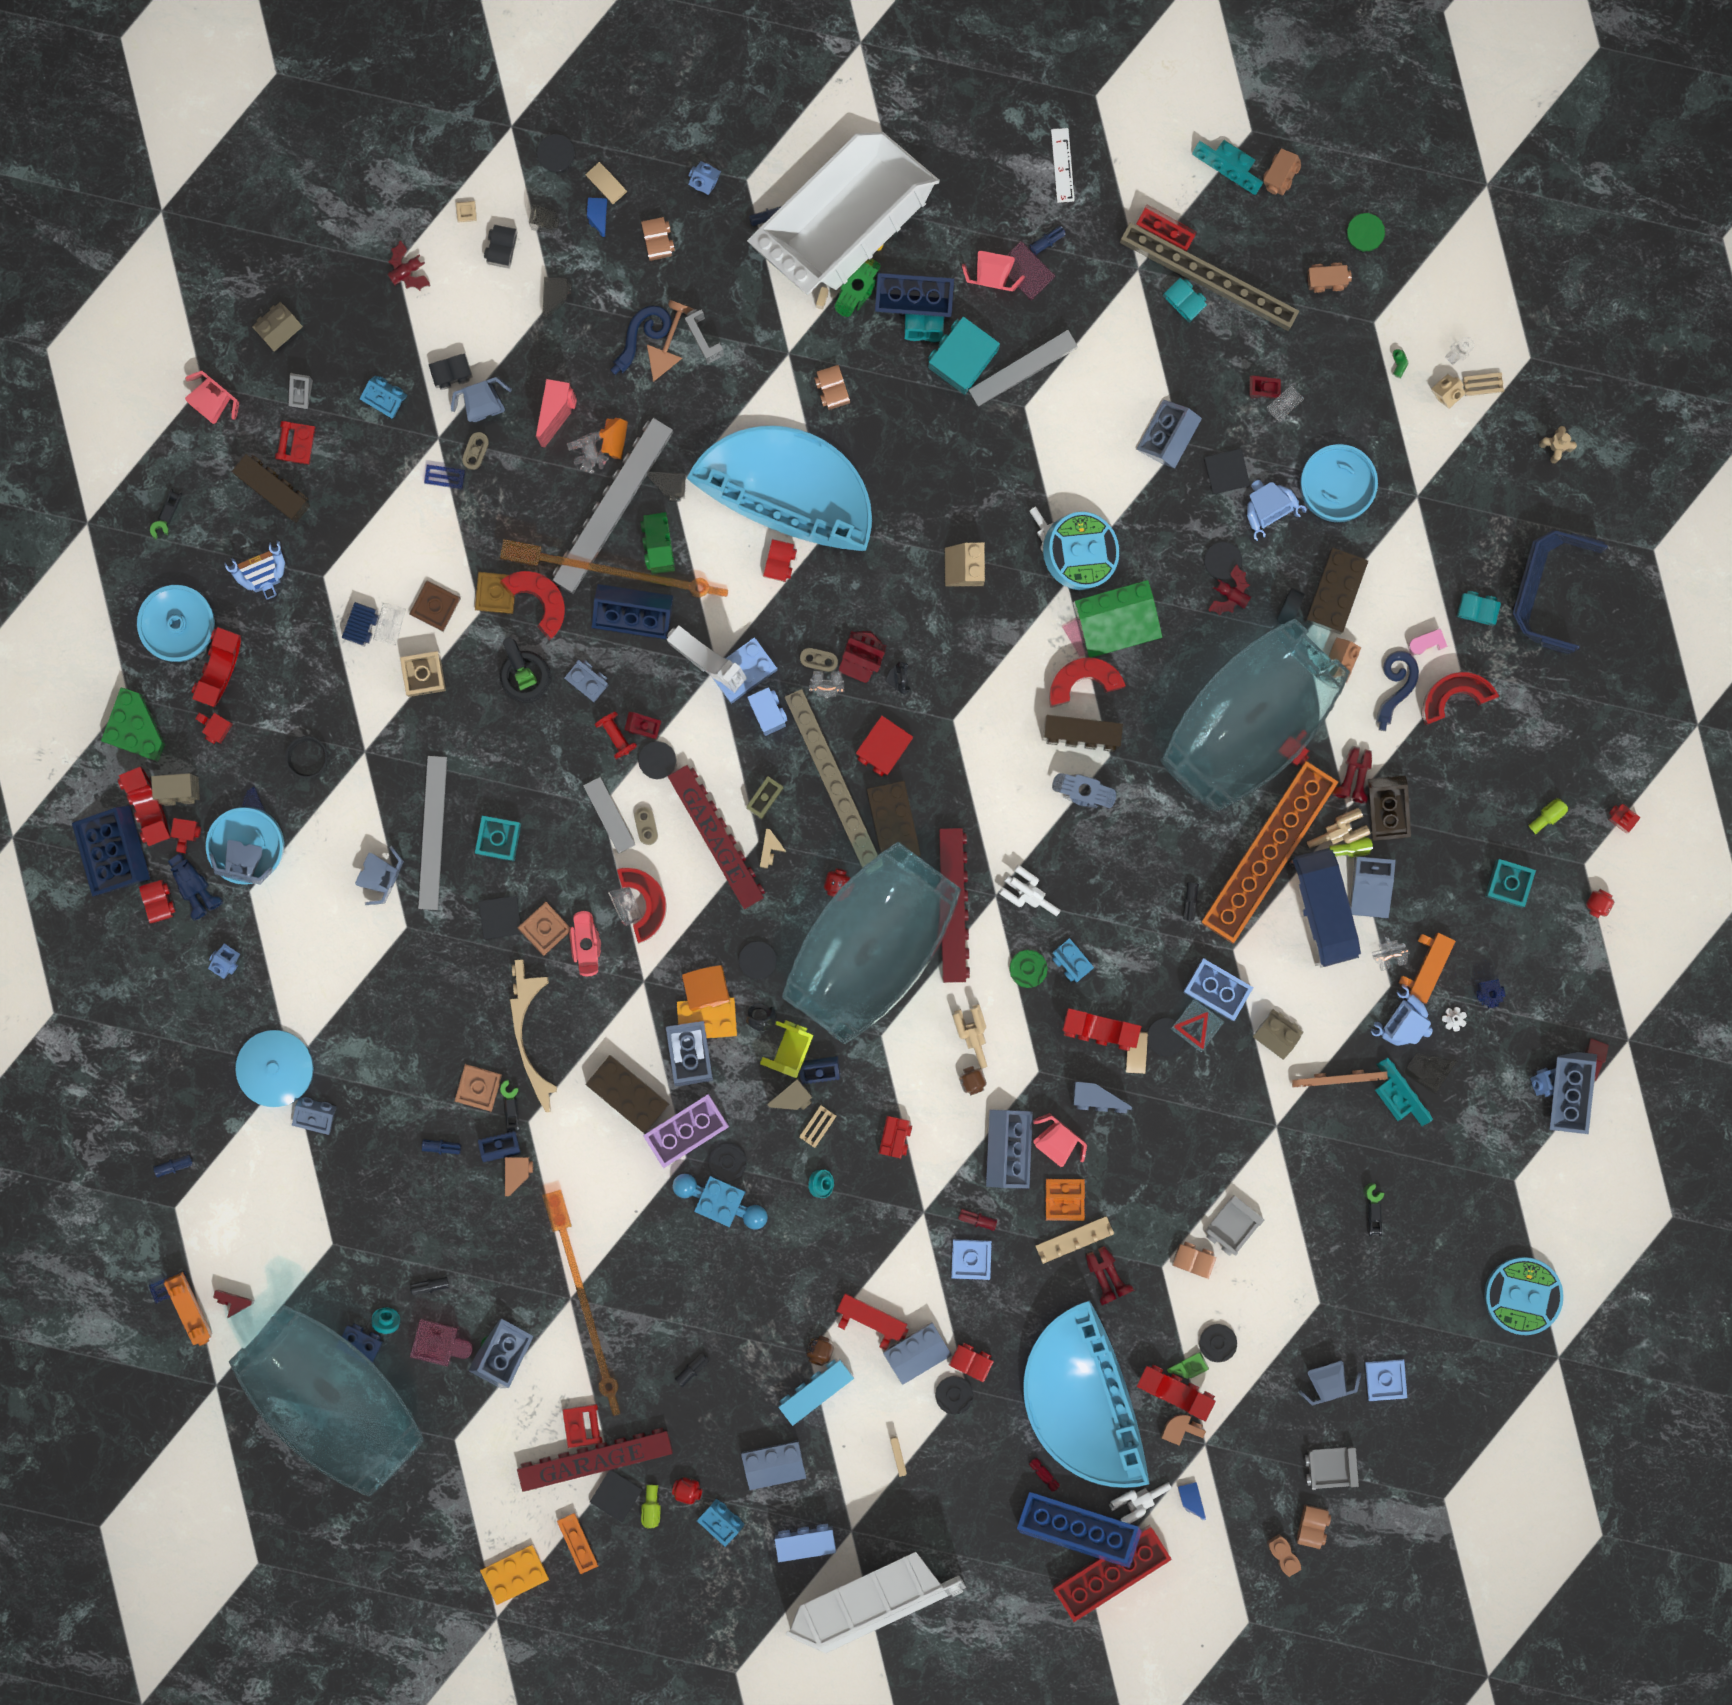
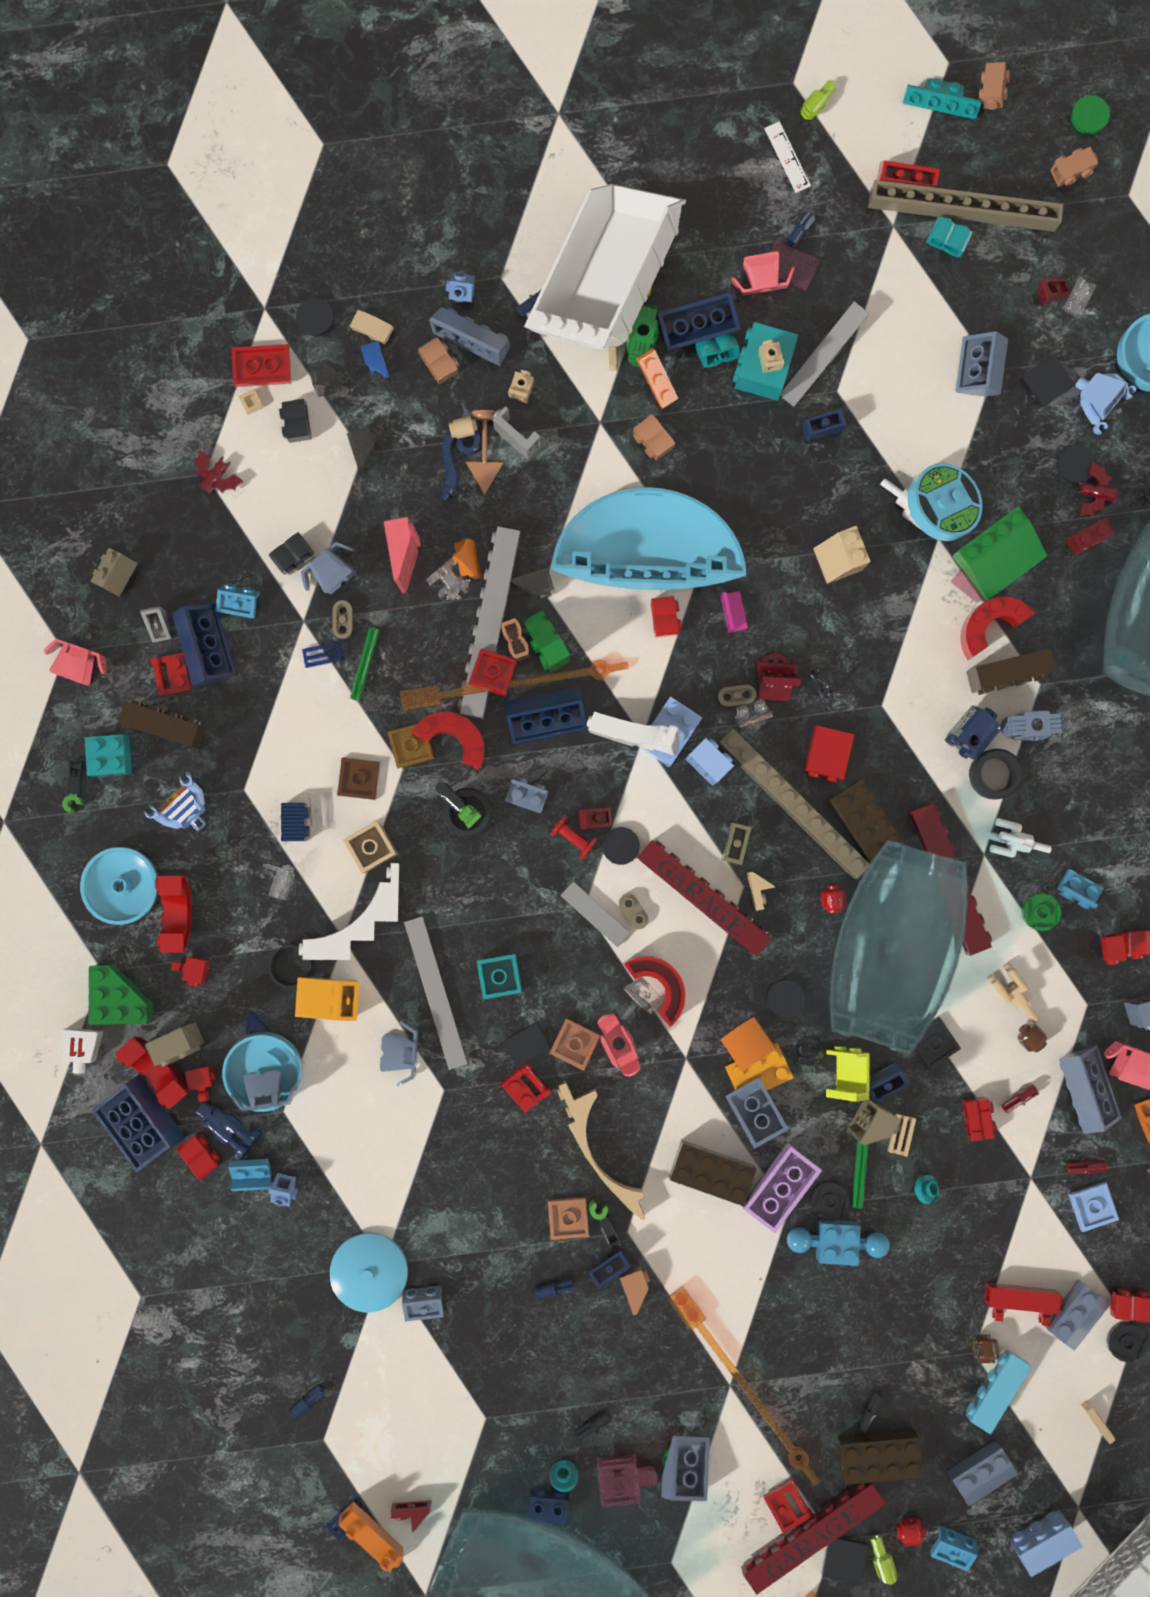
camera: 15 degrees left, 0 degrees up
(83, 760) = (80, 1047): none -> white torso
(198, 936) = (250, 1174): none -> dark azure bracket
(209, 497) = (108, 755): none -> teal brick
(328, 675) = (282, 881): none -> clear piece
(330, 799) = (327, 998): none -> light orange slope
(337, 426) = (204, 644): none -> dark blue slope
(412, 735) = (381, 908): none -> white arch
(478, 954) = (521, 1092): none -> red plate
(480, 500) = (364, 664): none -> green axle
(488, 181) = (261, 365): none -> red plate
(597, 553) = (493, 672): none -> red plate
(629, 536) = (516, 643): none -> nougat brick
(655, 312) = (463, 427): none -> tan brick
(683, 1411) = (879, 1457): none -> dark brown brick
(695, 226) = (470, 335): none -> sand blue slope
(726, 299) = (521, 392): none -> tan brick
(767, 1144) = (860, 1175): none -> green axle
(846, 580) = (733, 611): none -> dark pink panel
(855, 333) = (657, 378): none -> plate
(880, 1053) = (936, 1044): none -> black tile
(940, 1134) = (1020, 1099): none -> dark red axle
(964, 362) = (768, 362): none -> tan brick
(996, 435) = (823, 424): none -> dark blue brick
(1032, 773) = (974, 732): none -> dark blue cylinder
(1053, 823) = (1015, 769): none -> black tyre
(1110, 123) = (817, 100): none -> lime arm
(1208, 633) = (1090, 536): none -> dark red brick

